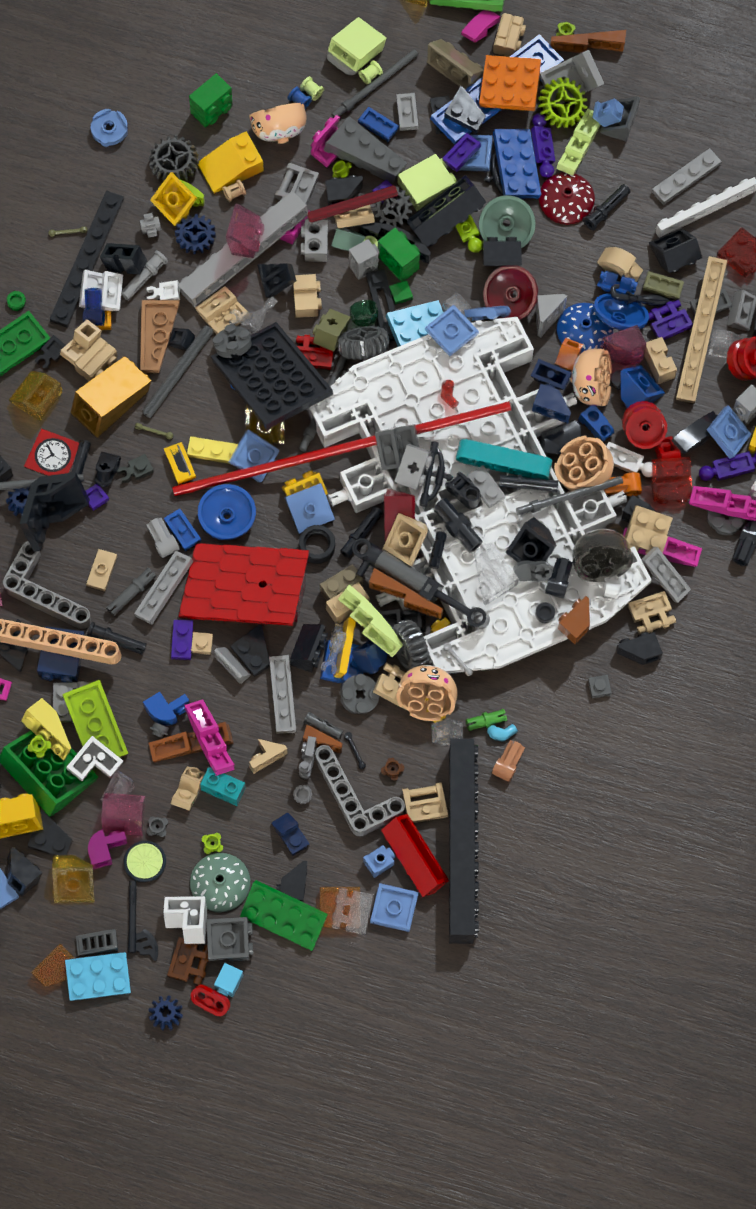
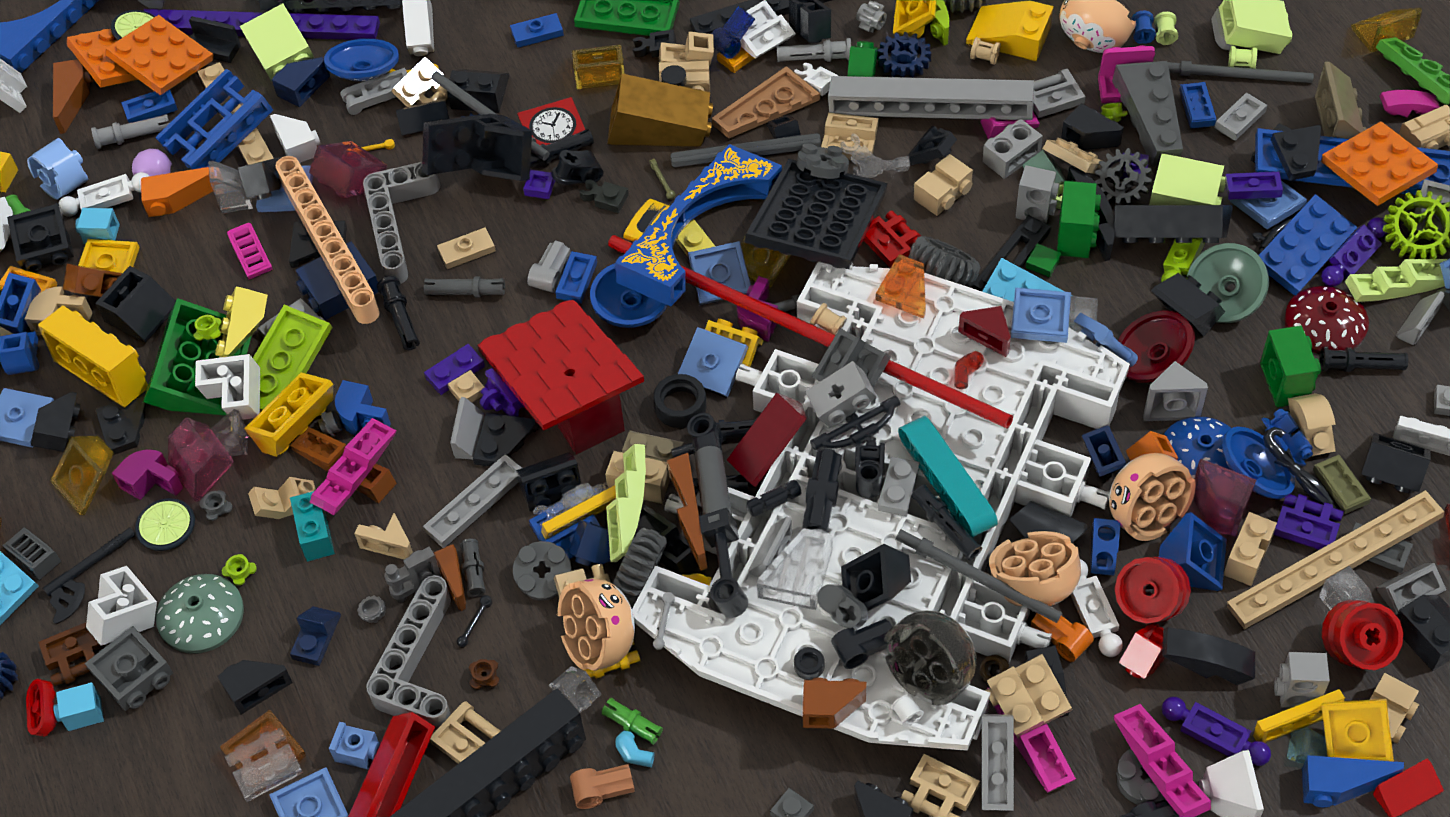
camera: 55 degrees right, 15 degrees down
(97, 365) = (674, 75): none -> black tile
(141, 743) = (290, 413): none -> yellow slope
(163, 587) = (495, 308): light grey plate -> none
(178, 257) = (862, 60): none -> green slope
(226, 630) = (499, 396): none -> dark purple hips
(227, 486) = (650, 262): none -> blue arch
(244, 232) = (938, 68): clear pink slope -> none
(284, 915) = (202, 699): green plate -> none
(286, 450) = (748, 319): none -> magenta brick
(330, 328) = (928, 222): olive brick -> none
(351, 204) = (1081, 137): dark red axle -> none
(353, 432) = (827, 319): none -> tan bush
(364, 312) = (980, 243): clear green hair -> none
(369, 377) = (904, 286): none -> clear orange wing
(406, 538) = (754, 457): tan slope -> none
(437, 362) = (987, 328): none -> dark red slope
(466, 575) = (772, 546): none -> light grey slope
(551, 403) = (1065, 470): dark blue slope -> none
(582, 244) = (1289, 364): none -> green brick
(609, 156) = (1420, 318): none -> light grey slope
(671, 479) = (1121, 673): clear red plate -> none
(729, 432) = (1247, 686): medium blue plate -> none

